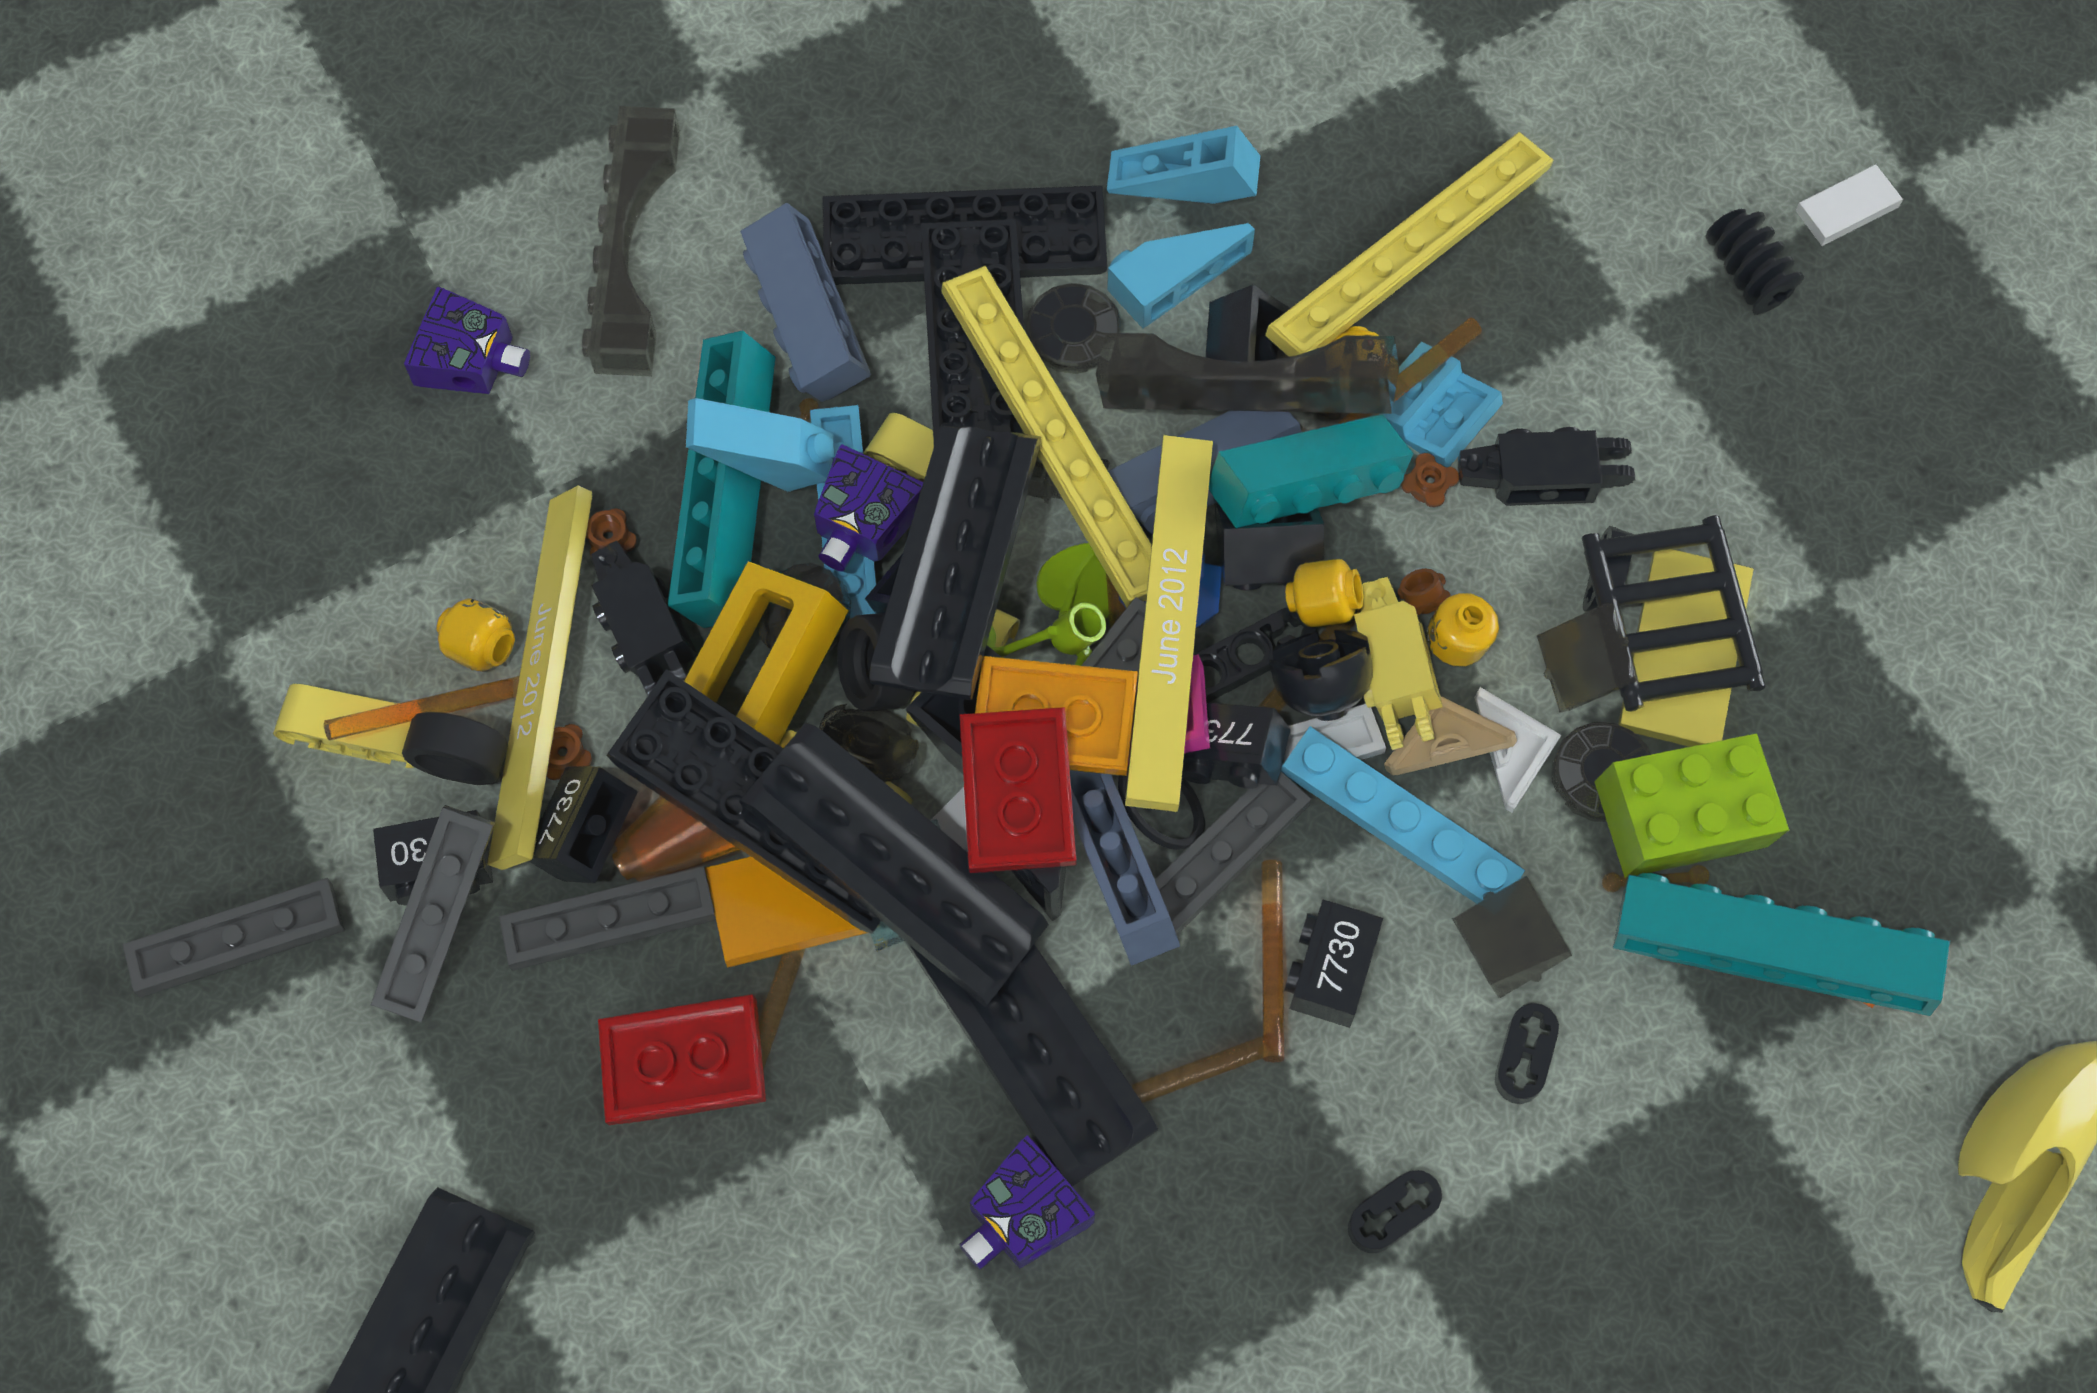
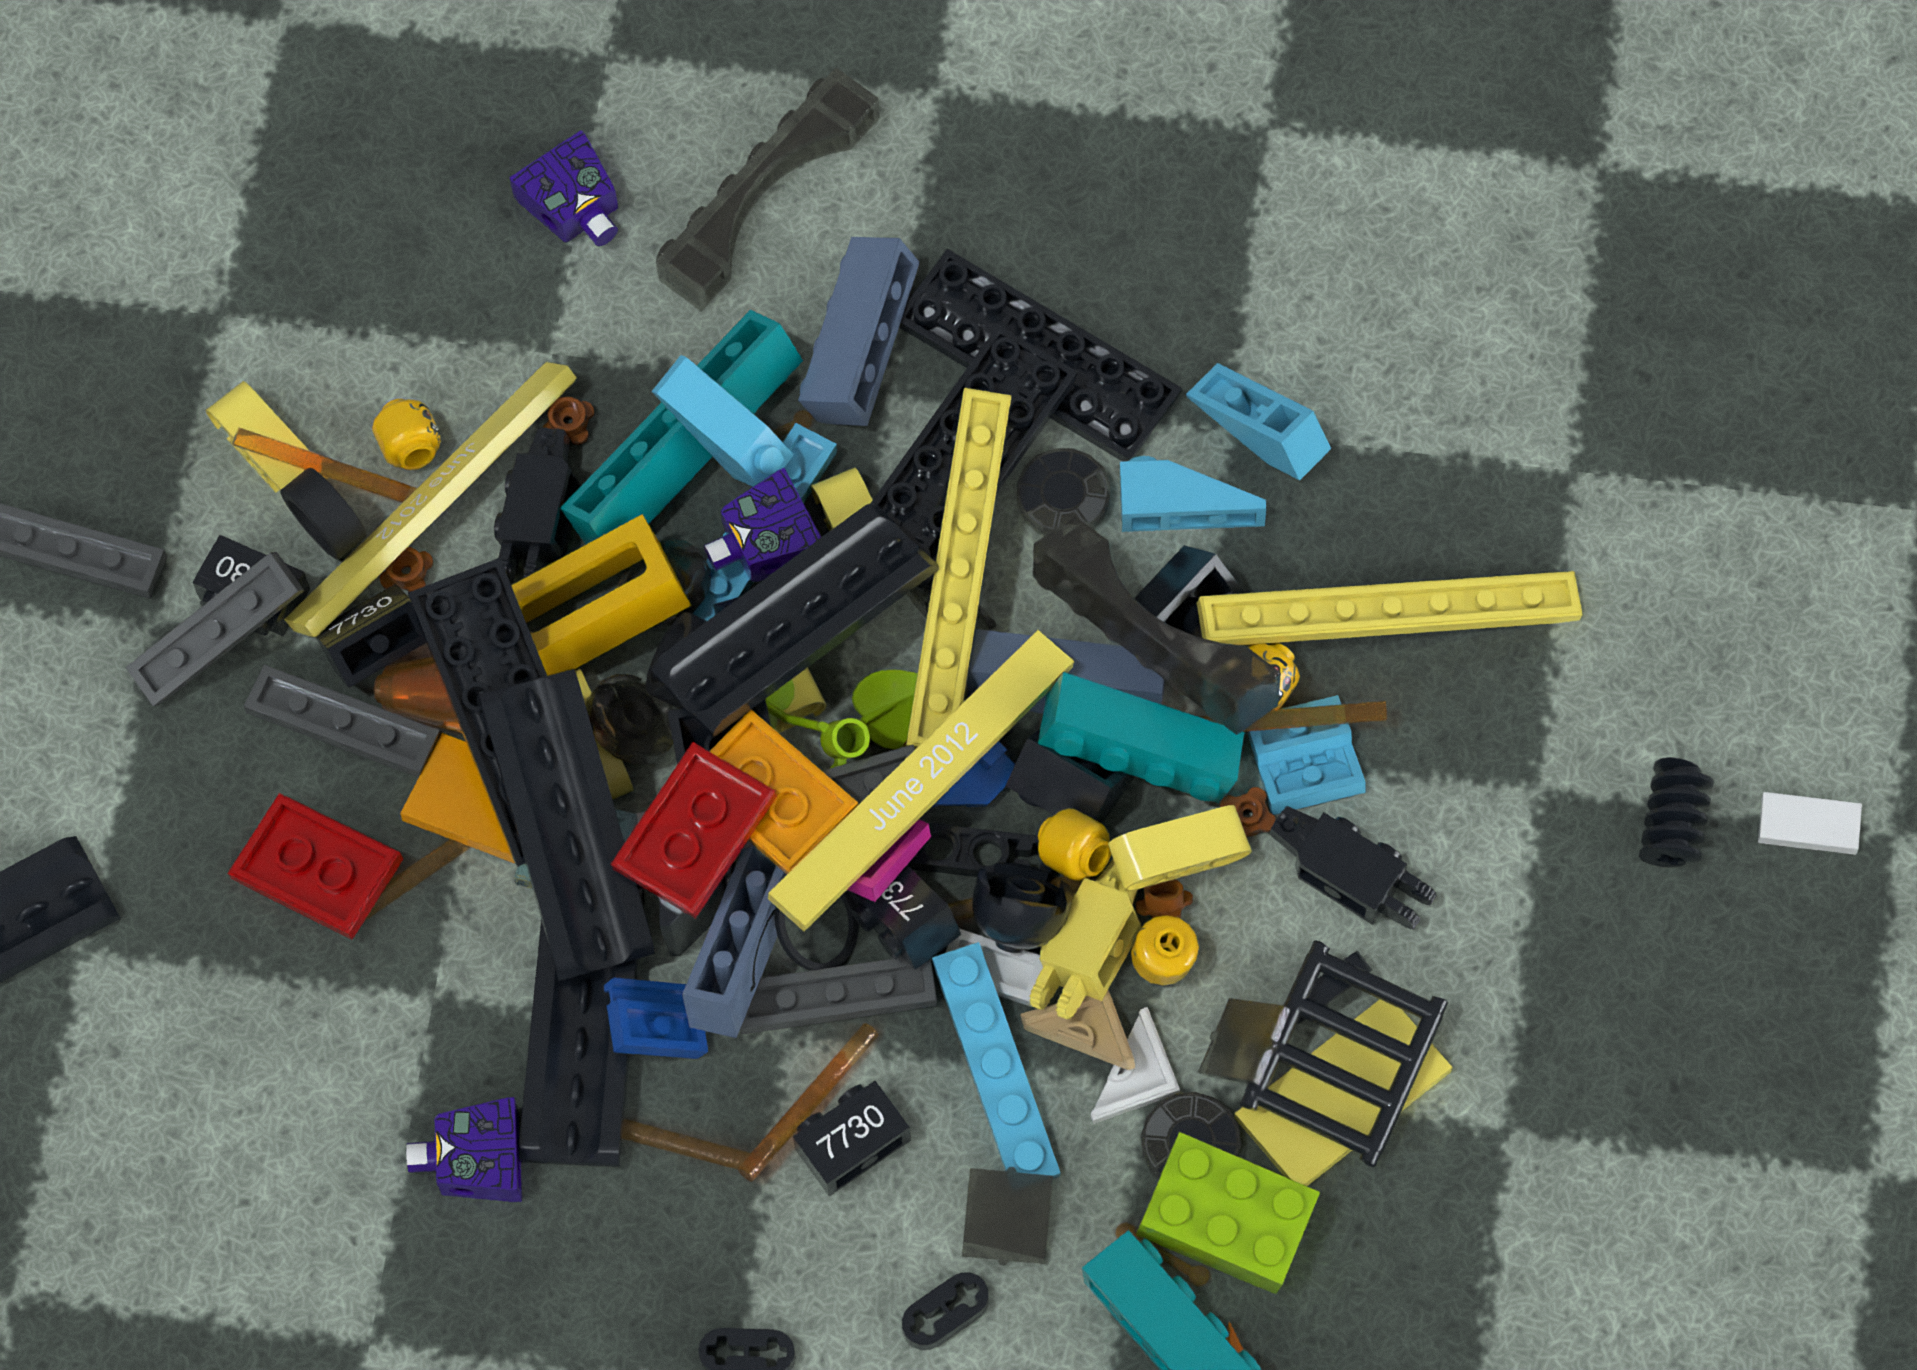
camera: 40 degrees right, 0 degrees up
(1092, 980) = (651, 1020): none -> blue plate
(1410, 538) = (1179, 847): none -> light yellow beam

